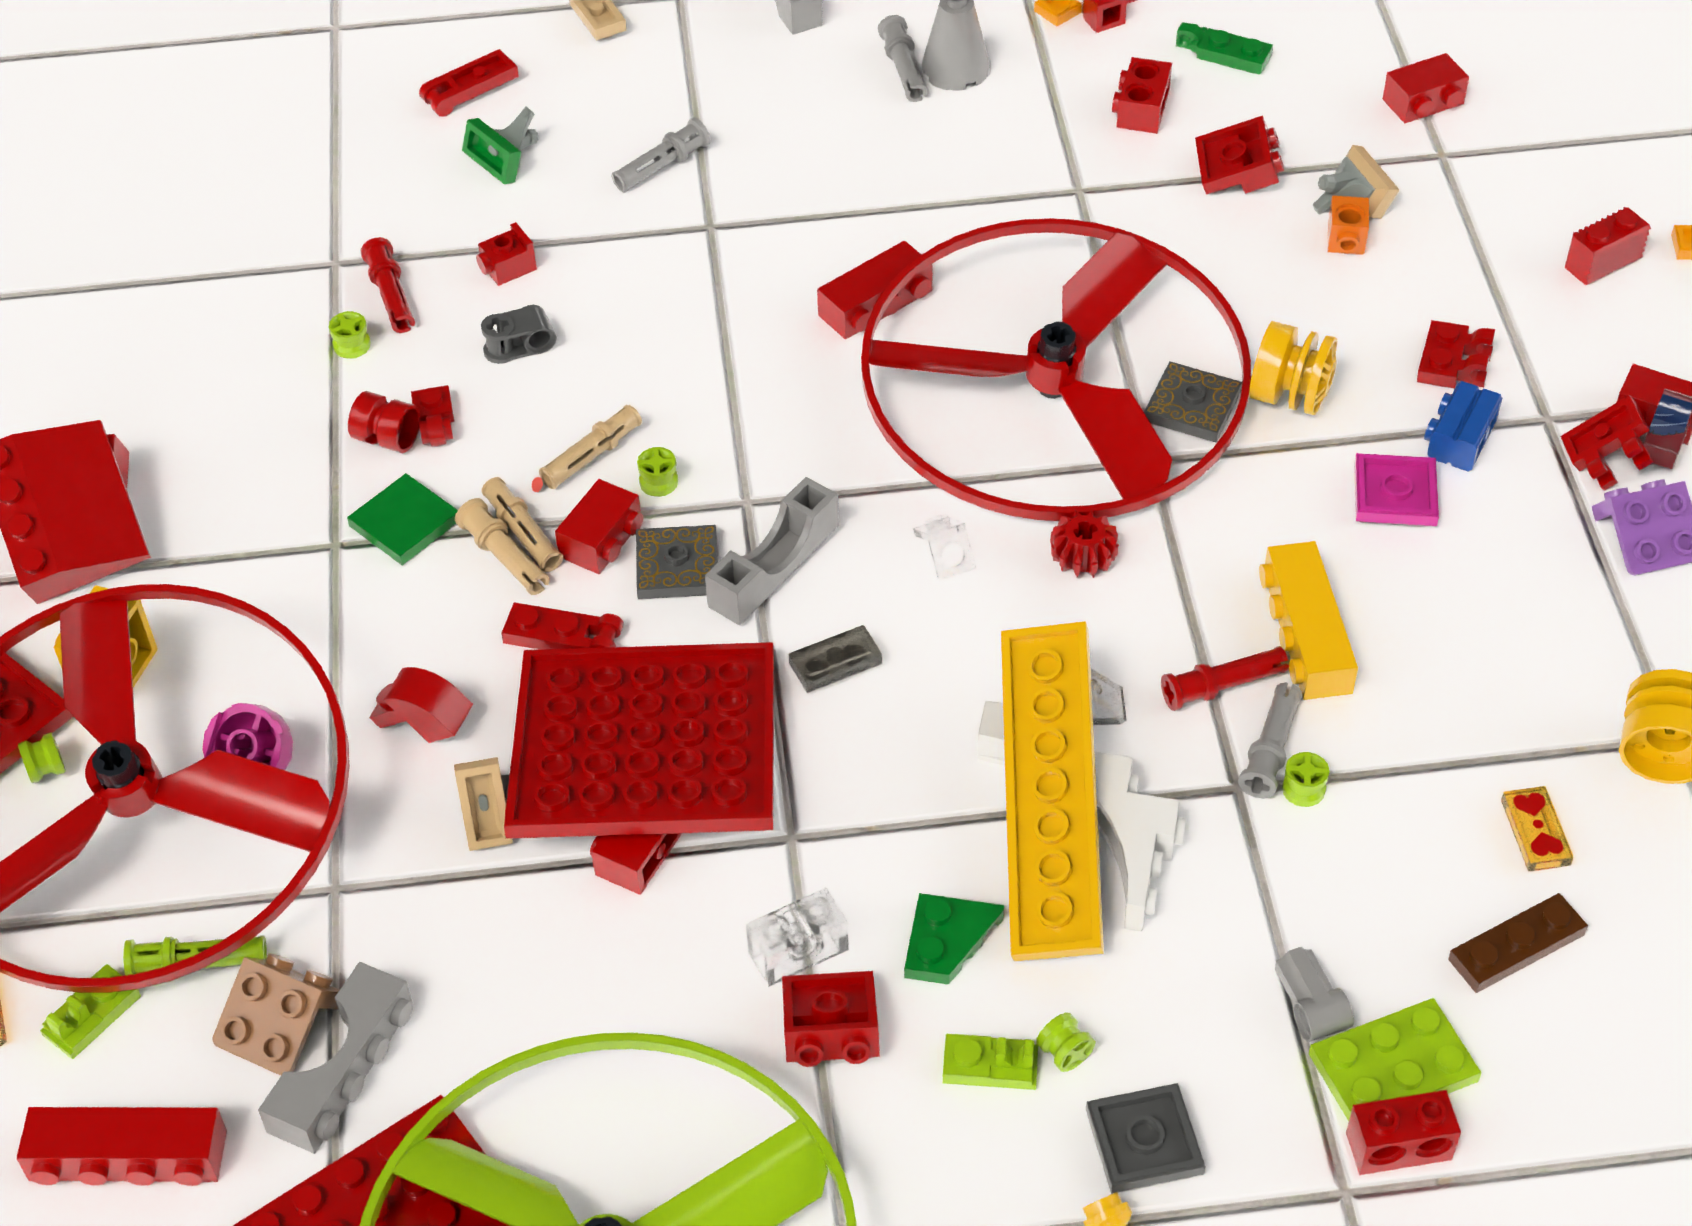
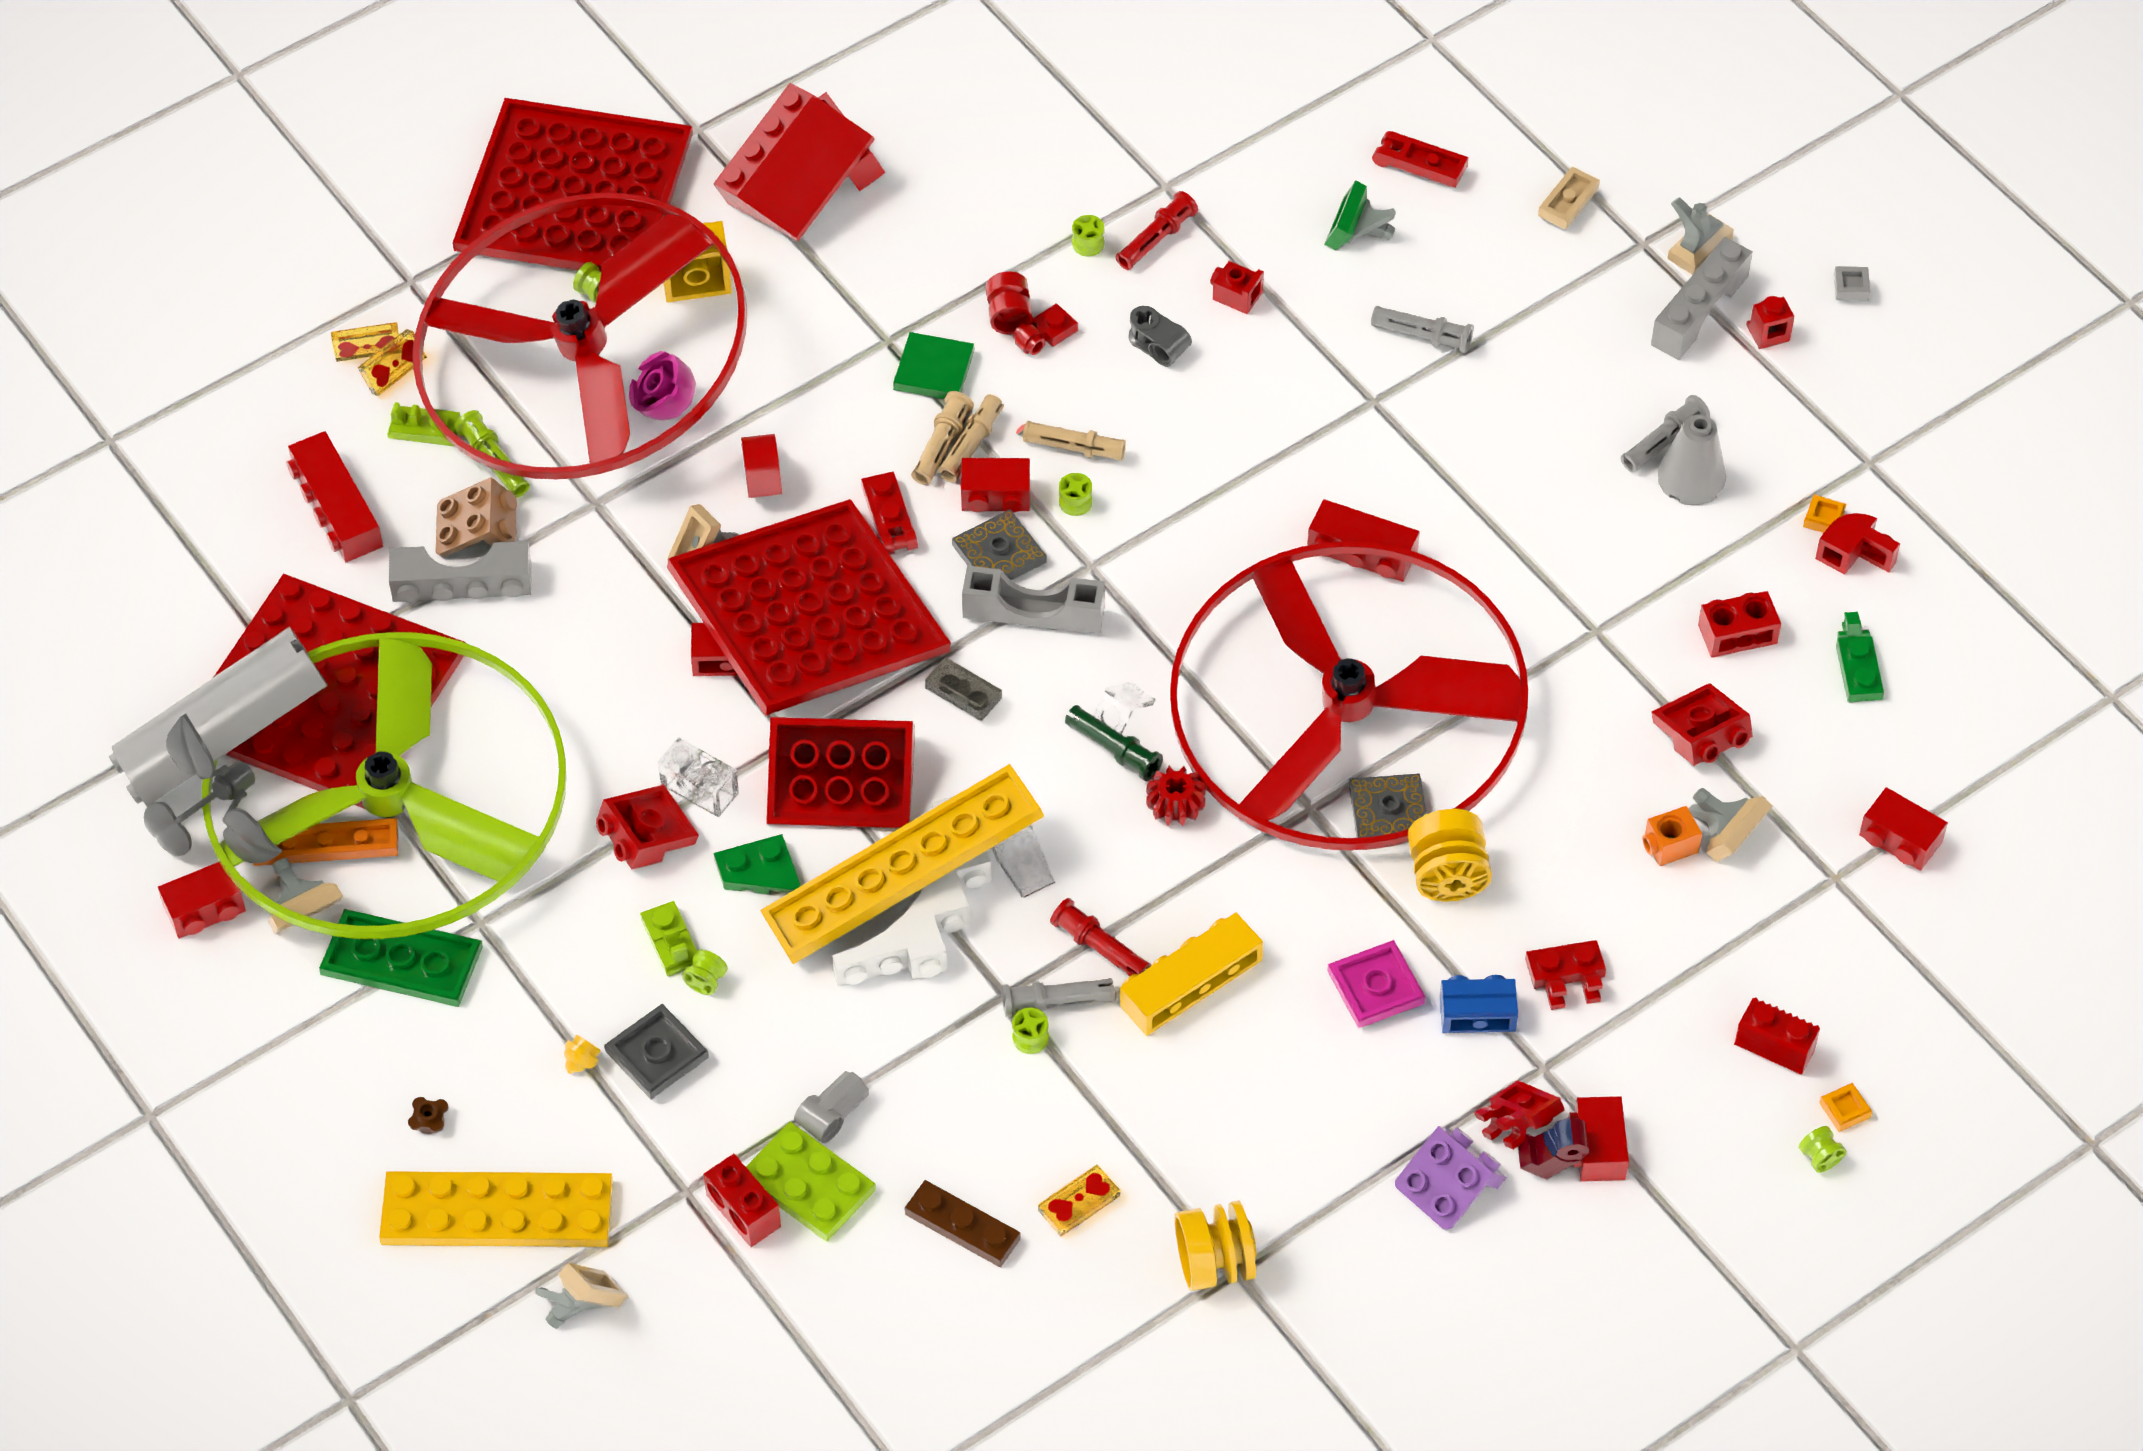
camera: 60 degrees right, 5 degrees up
(874, 806) = (840, 772): none -> red slope
(1000, 560) = (1125, 749): none -> dark green pin

